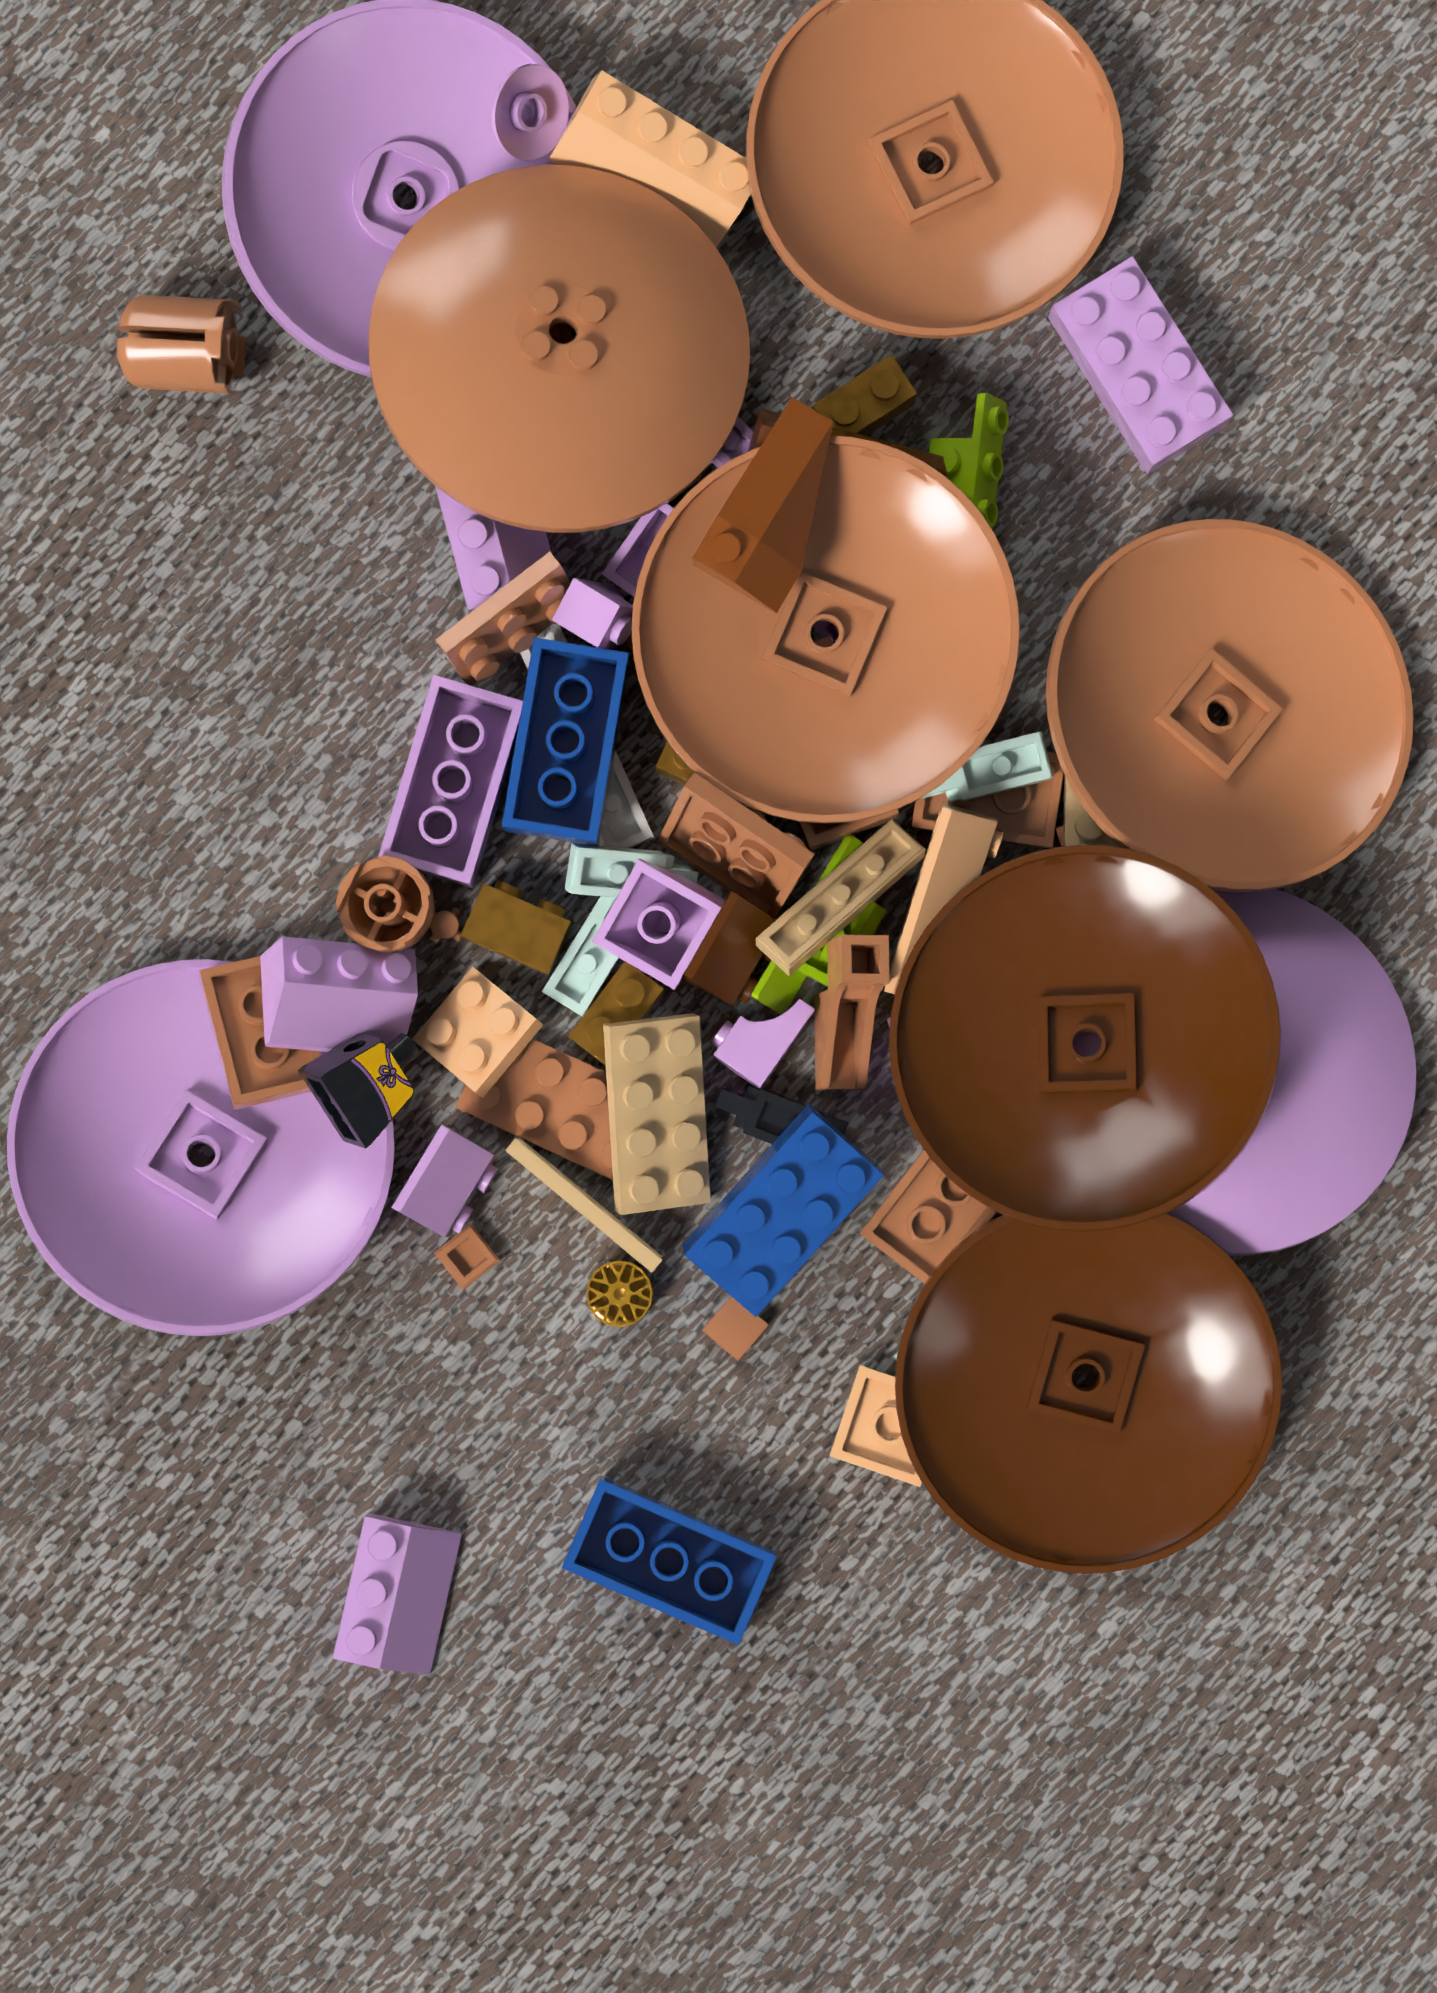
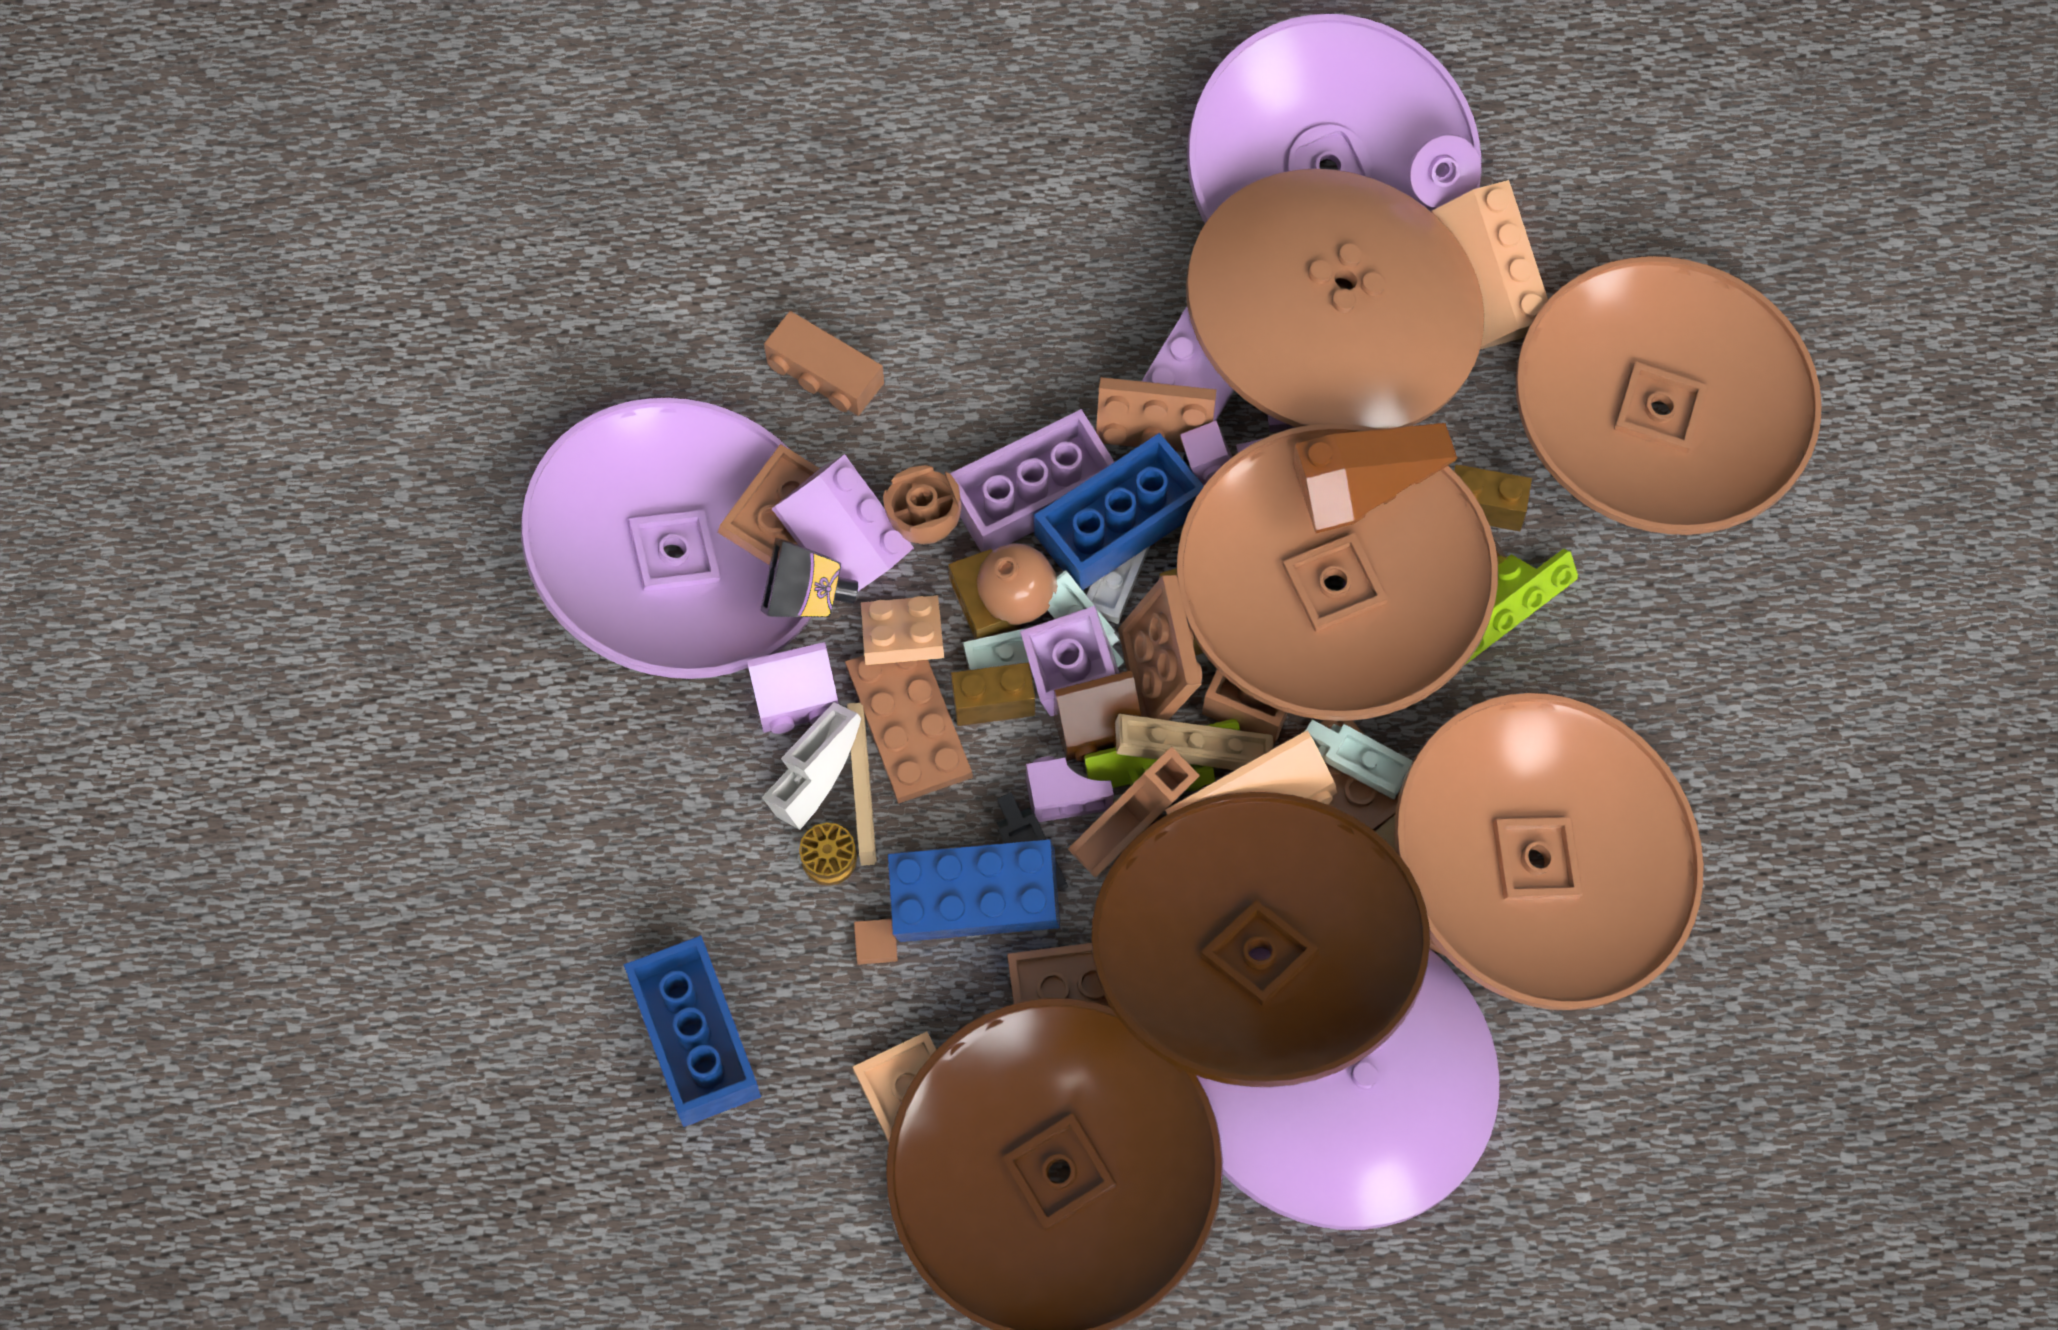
camera: 45 degrees right, 20 degrees down
(144, 846) = (823, 364): none -> nougat brick
(181, 343) = (1123, 132): nougat cylinder -> none
(397, 1595) = (514, 897): lavender slope -> none
(445, 926) = (943, 558): nougat piece -> none
(467, 1256) = (762, 752): nougat tile -> none
(531, 1231) = (813, 766): none -> white slope
(546, 901) = (1016, 583): none -> nougat cylinder
(657, 1113) = (957, 766): tan plate -> none
(1140, 365) = (1682, 622): lavender brick -> none

